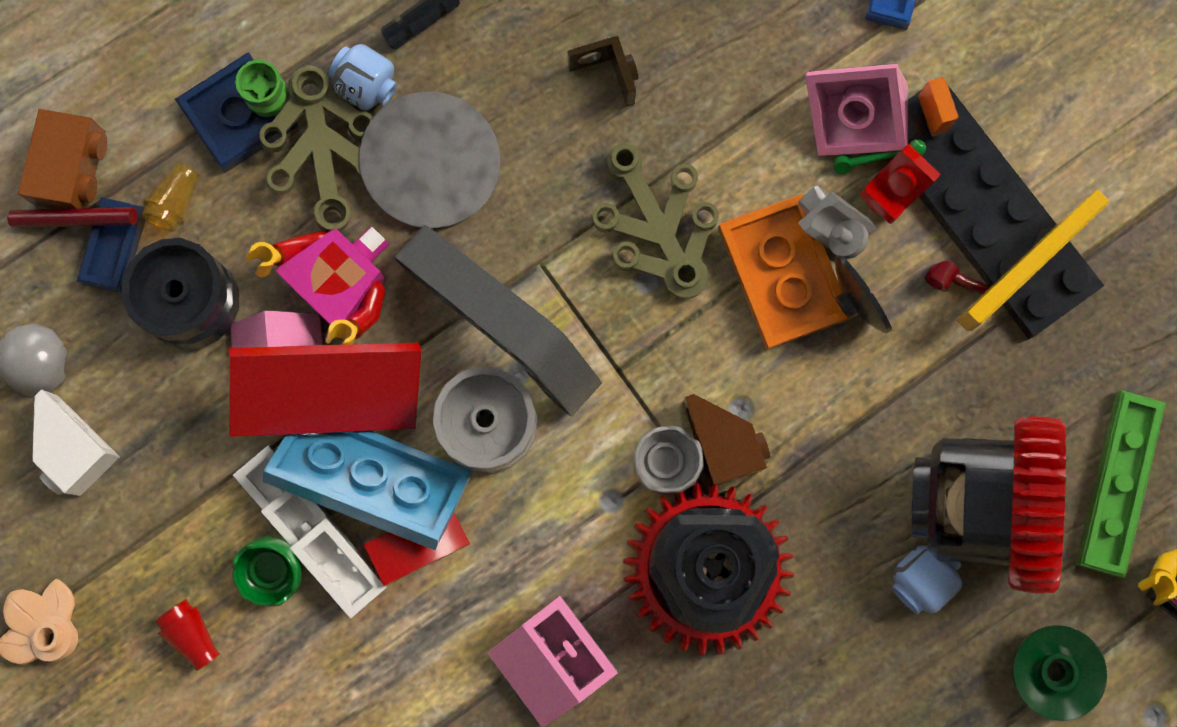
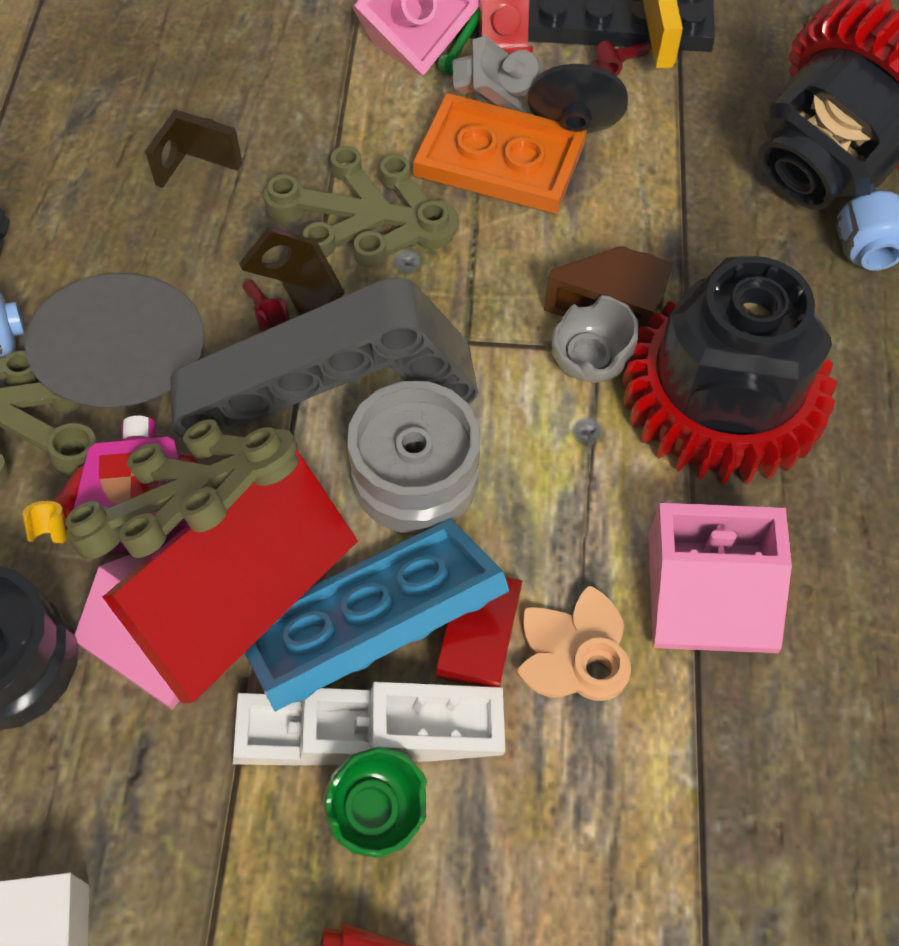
camera: 50 degrees left, 20 degrees down
(382, 351) = (189, 494): none -> olive plant
(451, 601) = (570, 643): none -> light nougat plate
(525, 233) = (267, 311): none -> dark red hand
(569, 236) = (302, 270): none -> dark brown bracket

